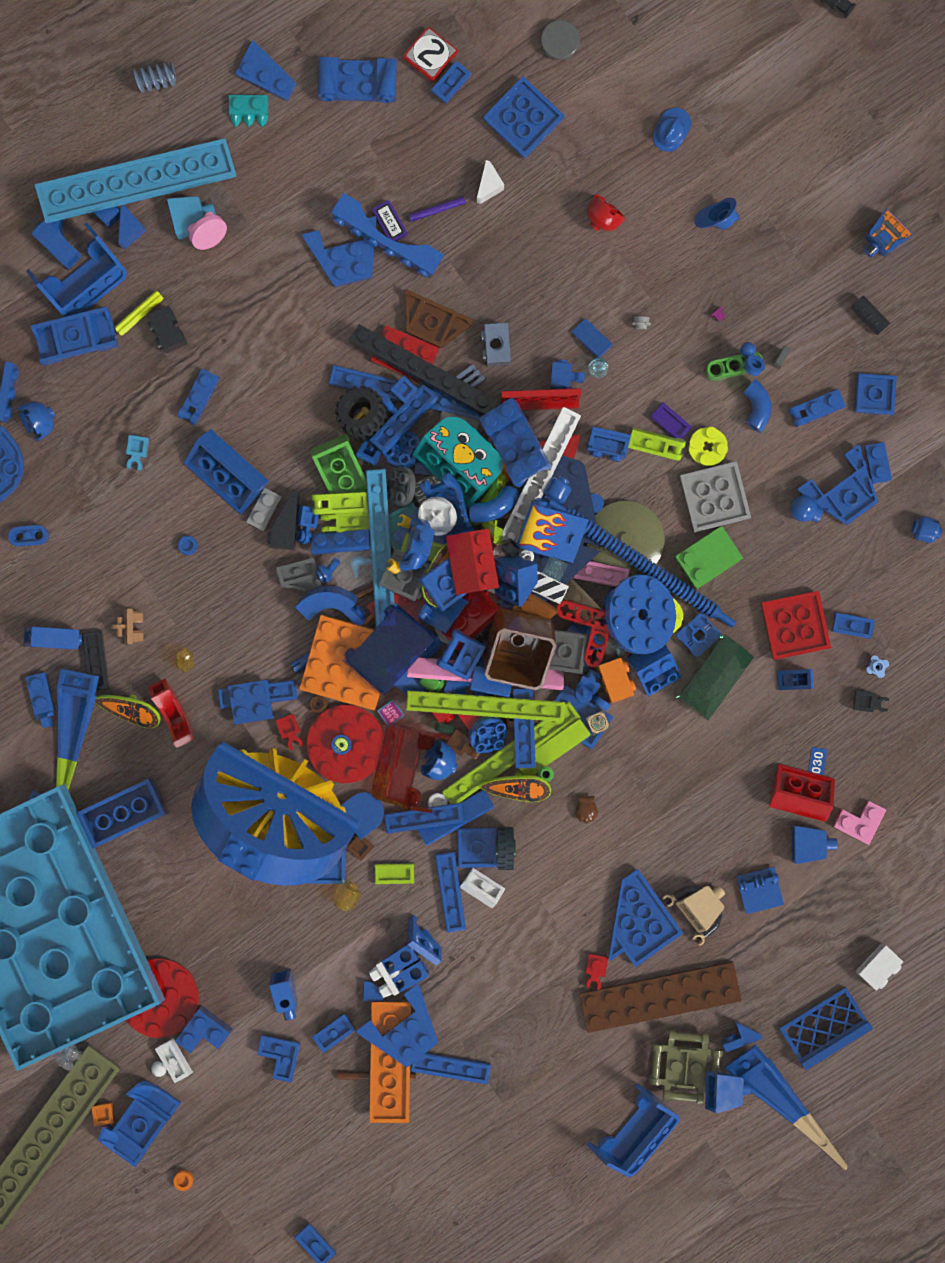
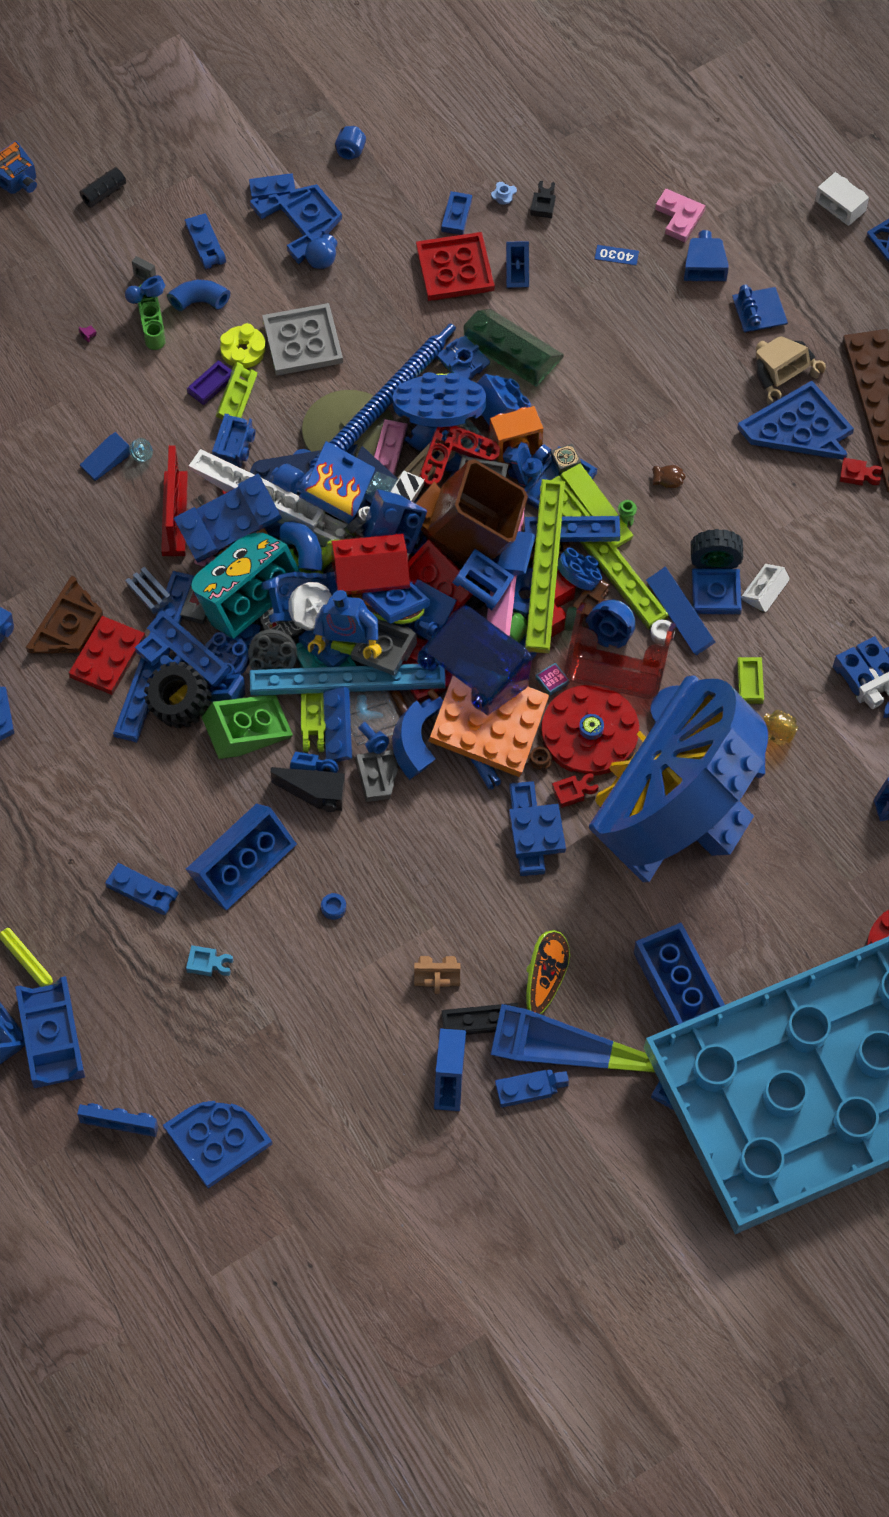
camera: 90 degrees left, 25 degrees down
(29, 535) = (312, 1098): blue plate -> none
(37, 419) = (159, 1080): blue cylinder -> none
(163, 324) = (51, 922): black brick -> none
(172, 712) = (560, 917): red arch -> none
(184, 660) = (482, 911): clear yellow plant -> none
(264, 509) = (294, 816): light grey plate -> none
(340, 502) = (288, 723): lime plate -> none
(415, 820) = (683, 644): blue tile -> none
(423, 371) = (131, 625): black plate -> none
(423, 942) = (833, 645): blue wing -> none
(450, 892) = (771, 620): blue tile -> none
(500, 333) = (114, 545): sand blue brick -> none
(518, 787) = (643, 539): shield -> none
(562, 375) = (147, 485): blue brick -> none
(641, 322) = (90, 406): light grey plate -> none
(708, 558) = (375, 349): bright green slope -> none
(802, 793) = (647, 263): red slope -> none
(875, 394) = (193, 188): blue tile -> none

